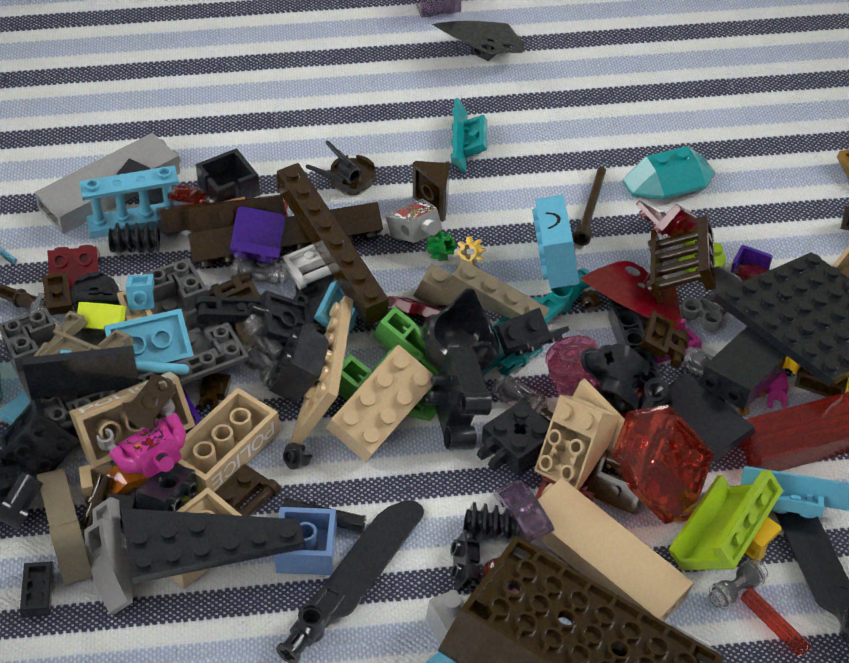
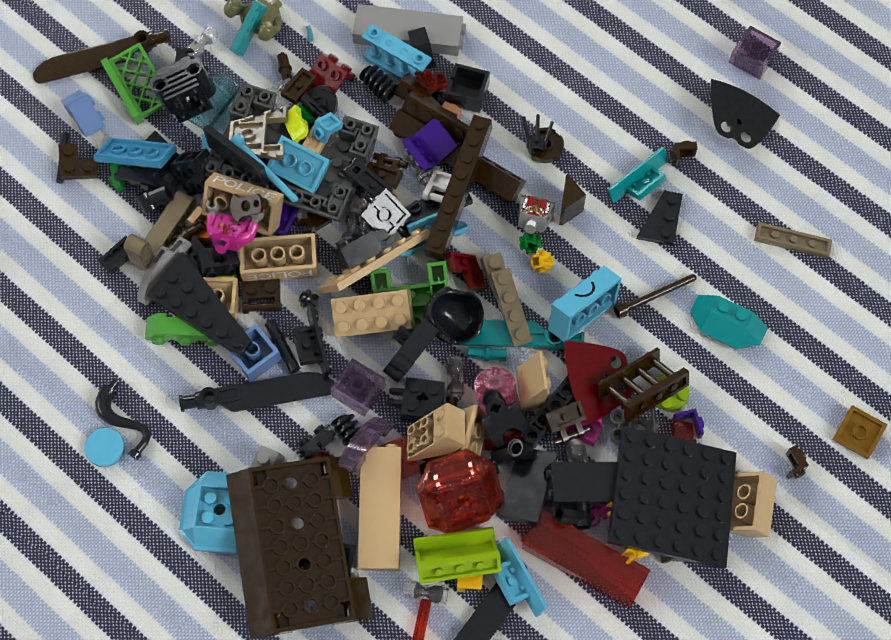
camera: 50 degrees right, 20 degrees up
(180, 602) = (163, 329): none -> bright green brick
(353, 484) = (310, 344): none -> black bracket
(447, 477) = (358, 387): none -> clear purple brick
(472, 93) = (683, 149): none -> dark brown bracket
(522, 151) = (663, 220): none -> black wing
(527, 333) = (494, 347): black bracket -> none
(599, 318) = (533, 382): none -> tan slope
(636, 90) = (793, 240): none -> dark tan tile
(673, 223) = (673, 349): bracket -> none
(771, 399) = (576, 516): none -> black piece

